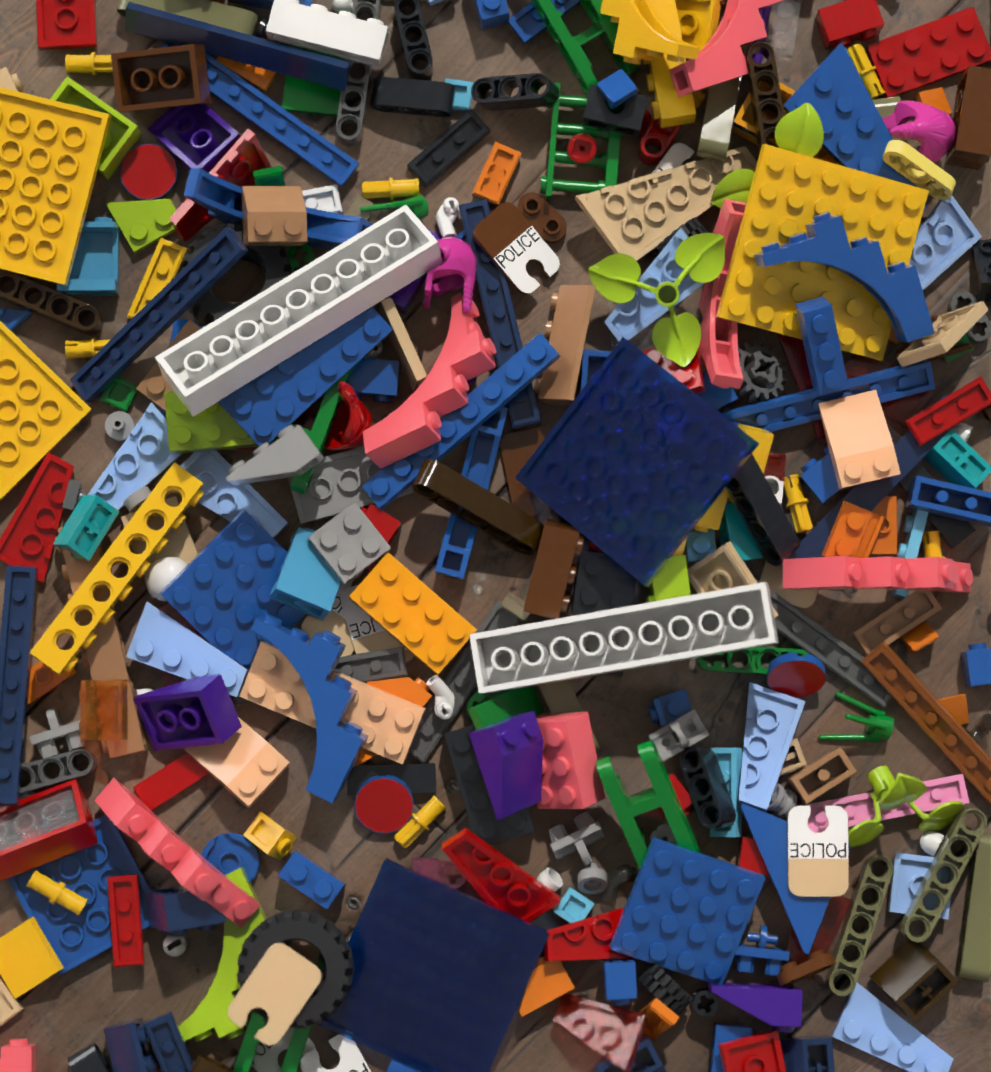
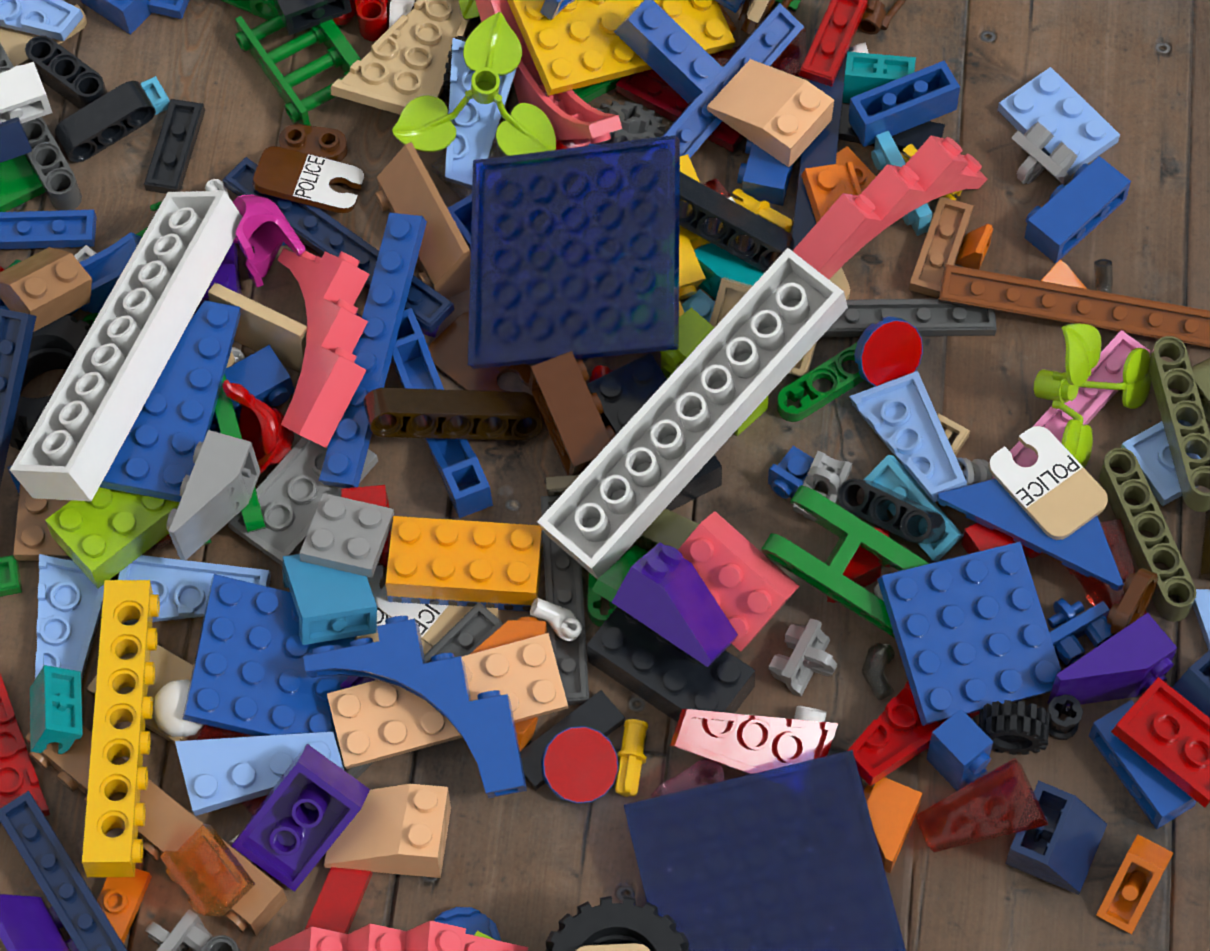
camera: 30 degrees left, 20 degrees down
(73, 495) = (20, 701): dark grey plate -> none
(123, 431) = (21, 606): light grey tile -> none
(136, 499) = (89, 656): light grey tile -> none
(270, 836) = (485, 884): yellow bracket -> none
(311, 879) = (558, 891): blue brick -> none
(390, 188) = (139, 216): yellow axle -> none
(496, 174) = (238, 133): orange plate -> none
(525, 98) = (186, 54): black beam -> none
(573, 906) = (852, 721): medium azure plate -> none
(582, 148) = (305, 52): red tile -> none
(592, 879) = (852, 684): light grey tile -> none
(659, 1018) = (1032, 752): orange plate -> none
(821, 775) = (991, 420): medium nougat brick -> none
(876, 725) = (1002, 347): green plant -> none
(930, 842) = (1146, 413): white hinge -> none

